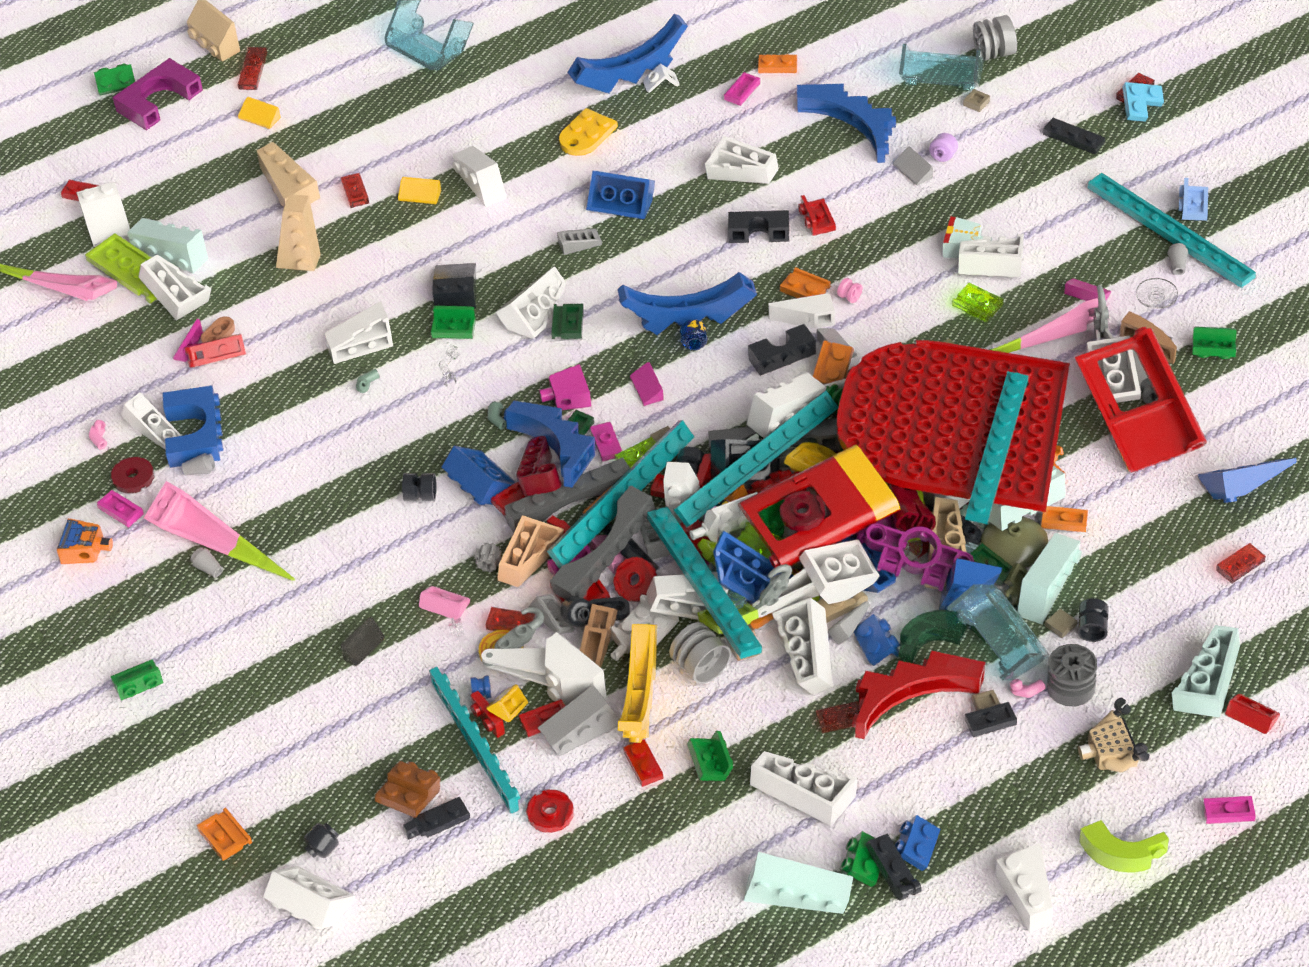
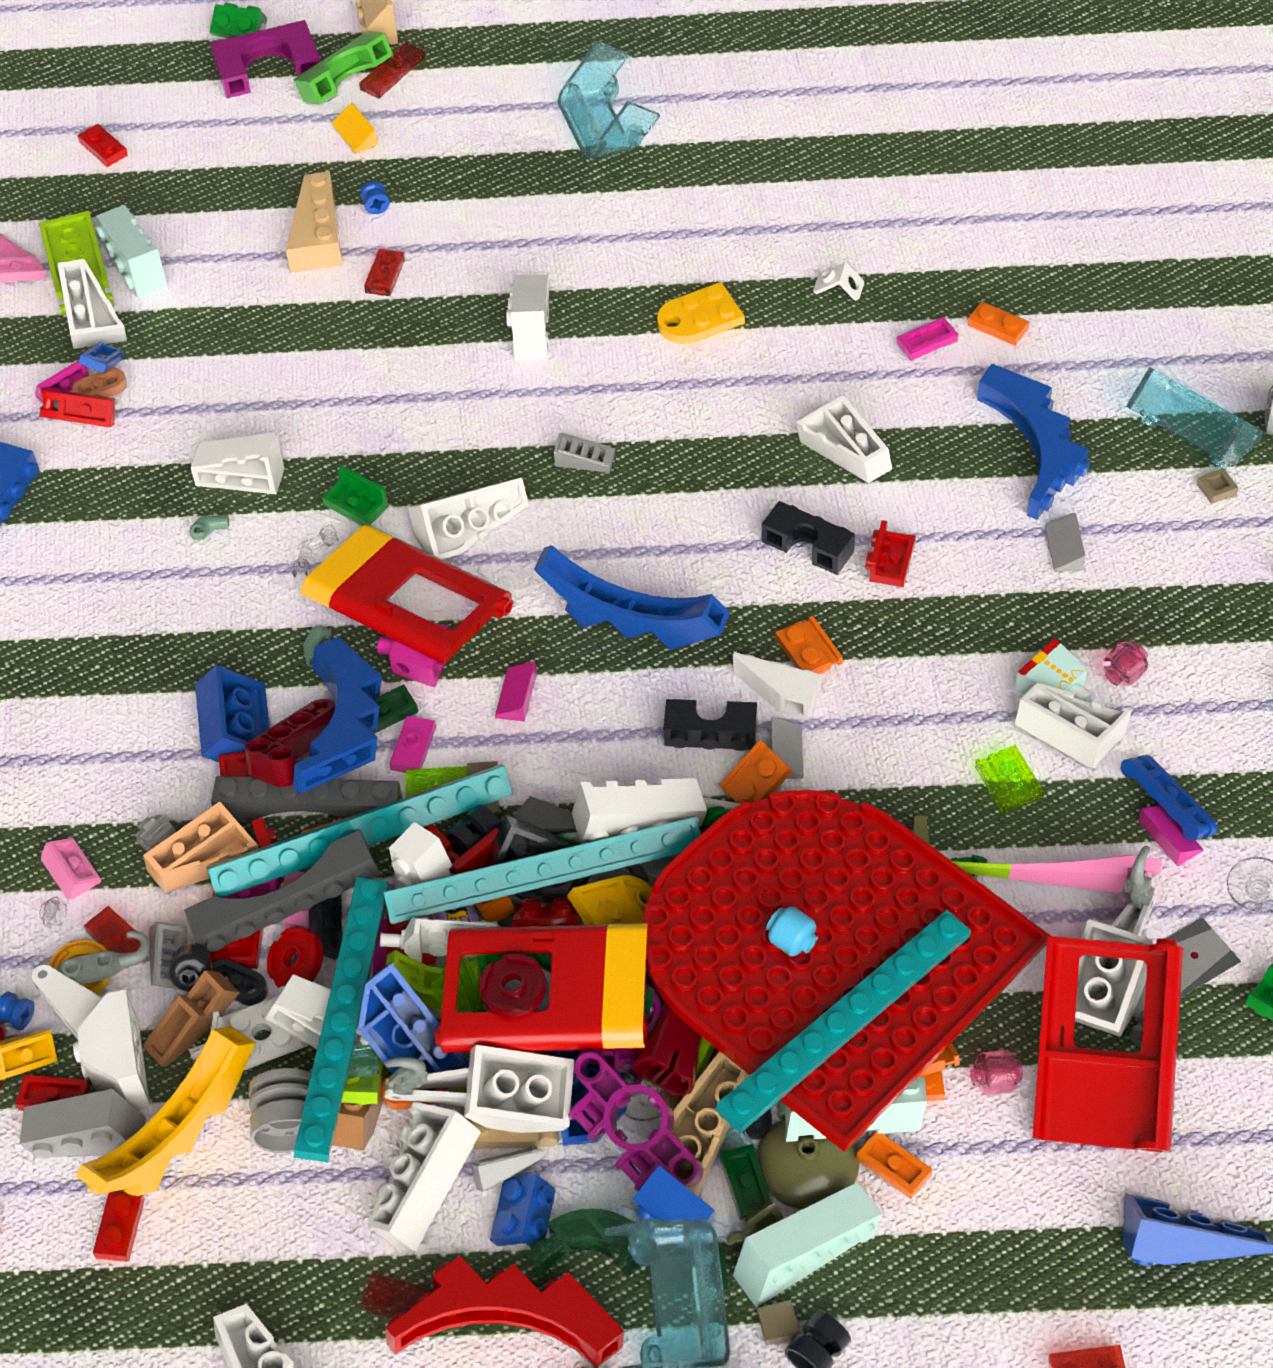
camera: 30 degrees right, 5 degrees up
(103, 212) = (98, 179): white slope -> none
(208, 314) = (101, 357): none -> blue plate
(226, 63) = (360, 54): none -> bright green arch
(298, 236) = (255, 303): tan wedge -> none
(311, 148) = (374, 197): none -> blue wheel
(419, 190) = (452, 305): yellow slope -> none
(419, 487) = (152, 698): black wheel -> none
(455, 285) = (396, 448): black slope -> none
(506, 359) = (374, 566): none -> red piece
(568, 321) = (490, 556): dark green plate -> none
(620, 194) = (674, 416): blue slope -> none
(630, 66) = (807, 250): blue arch -> none
(693, 334) = (617, 650): clear blue head -> none
(710, 757) = (193, 1267): green bracket -> none
(849, 290) = (855, 681): bright pink wheel -> none
(936, 415) = (792, 931): none -> medium azure head
(943, 147) = (1122, 533): lavender head -> none
(998, 214) = (1125, 663): none -> clear pink head
(1081, 272) = (1171, 796): none -> blue plate
(1086, 448) = (996, 1072): none -> clear pink head
(1132, 322) = (1199, 945): medium nougat slope -> none

